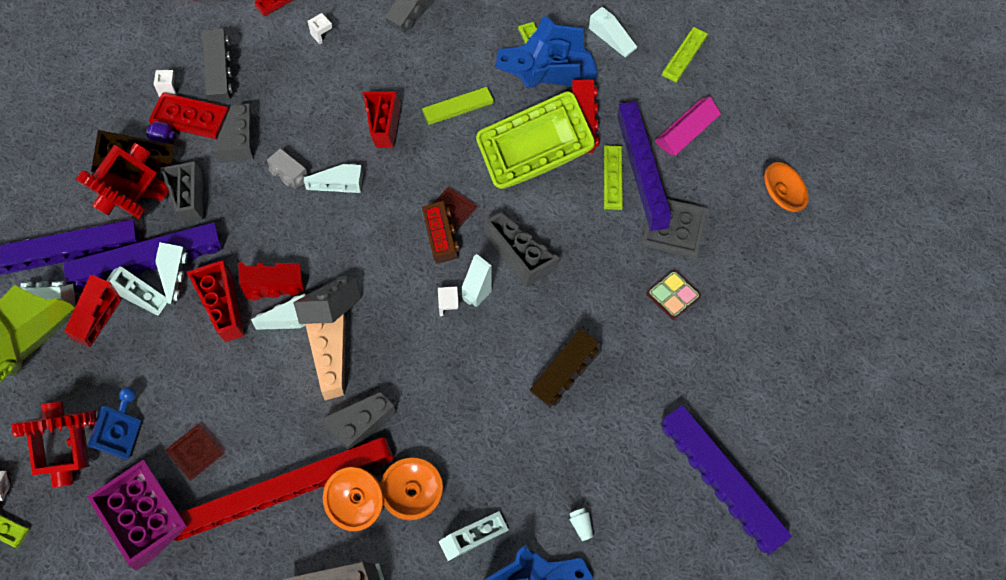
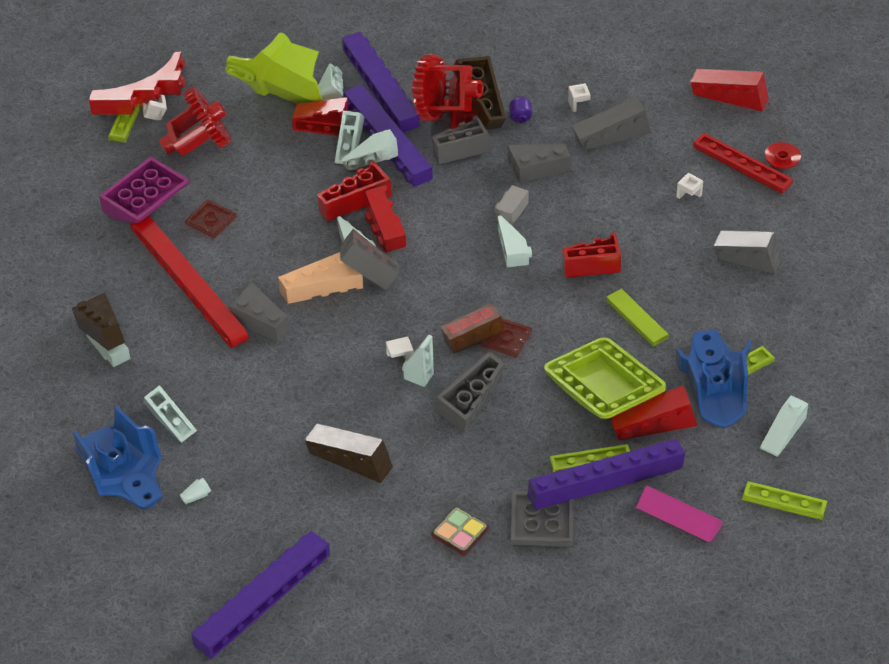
camera: 80 degrees right, 15 degrees down
(115, 430) = (215, 160): blue plate -> none
(190, 115) = (550, 121): red plate -> none
(341, 499) = (185, 323): orange dish -> none
(411, 475) = (200, 353): orange dish -> none
(786, 187) = (630, 595): orange dish -> none

